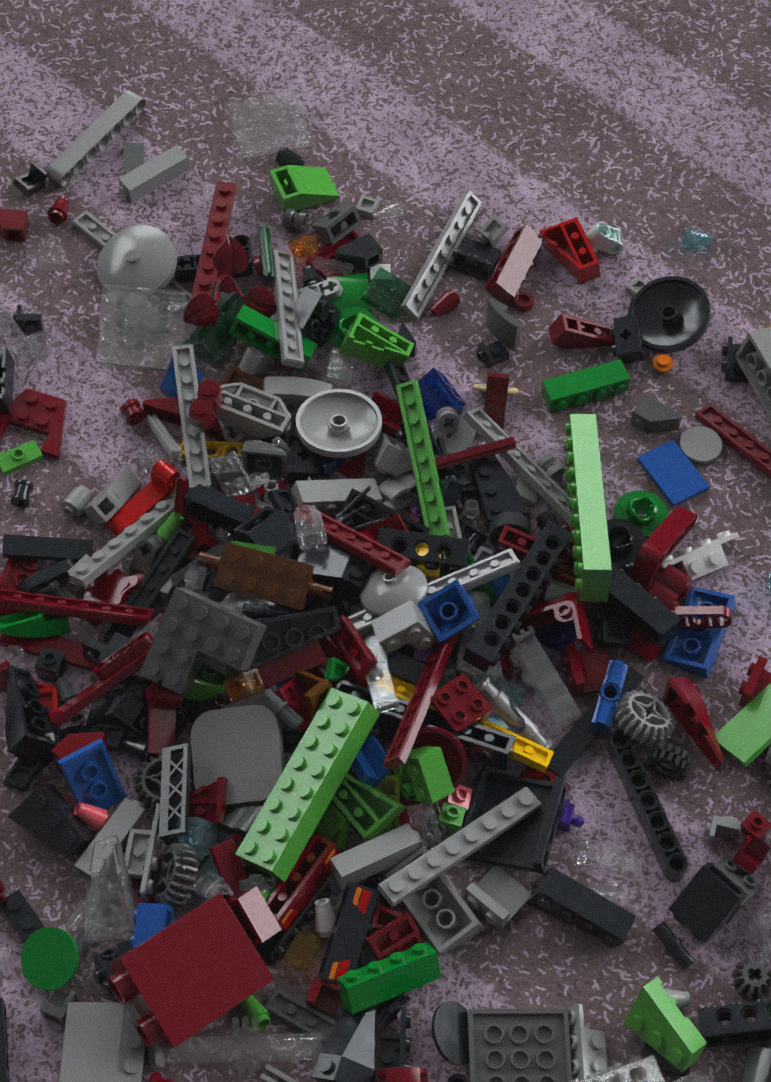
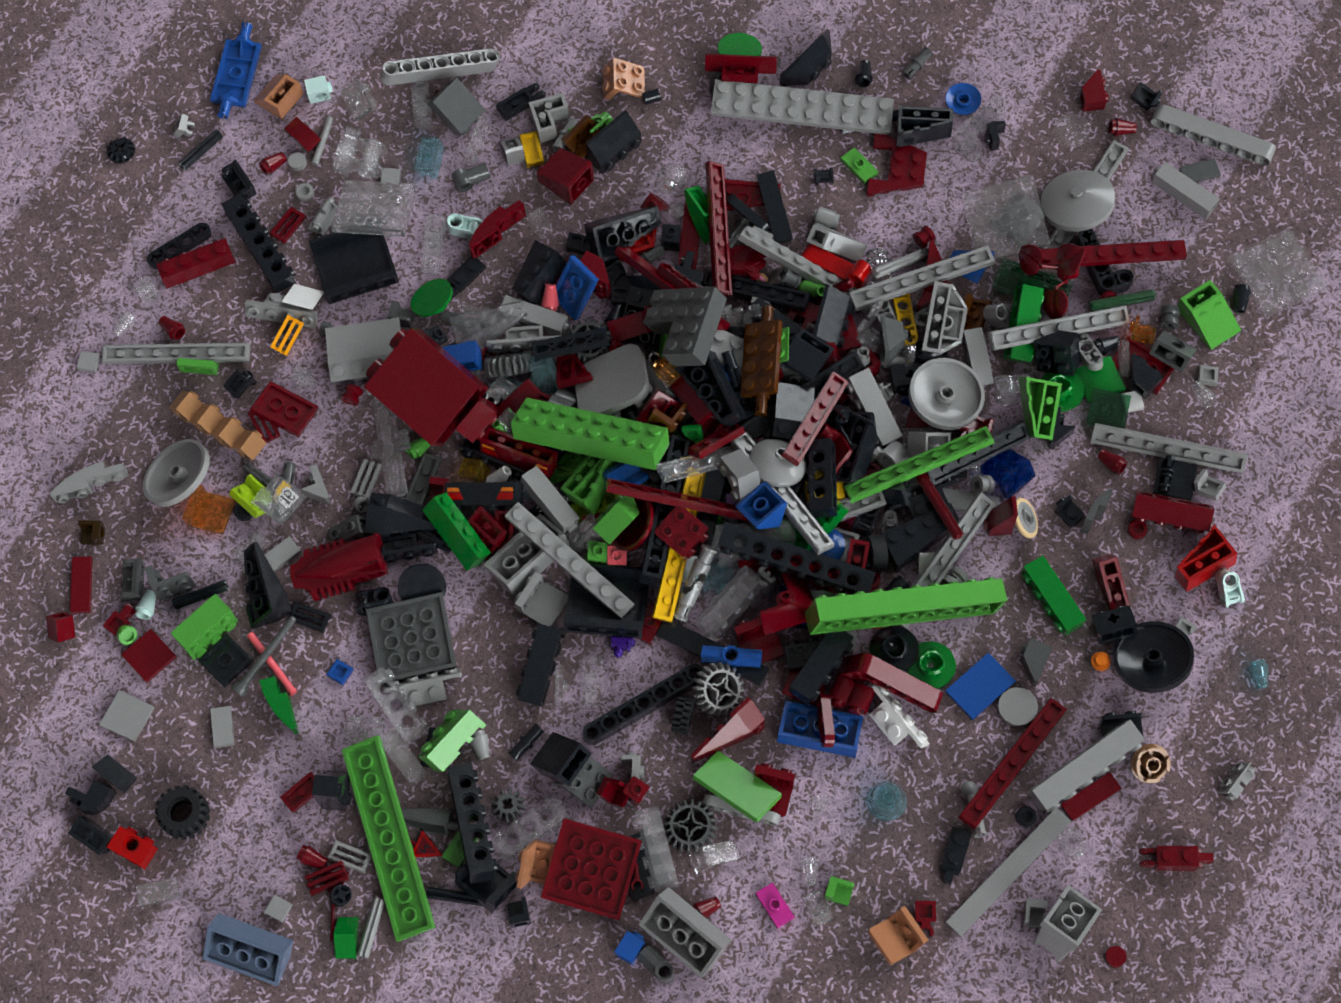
camera: 85 degrees right, 10 degrees up
(204, 407) = (928, 281): dark red brick -> none
(281, 709) = (644, 397): dark grey axle -> none
(309, 531) = (818, 382): clear piece -> none

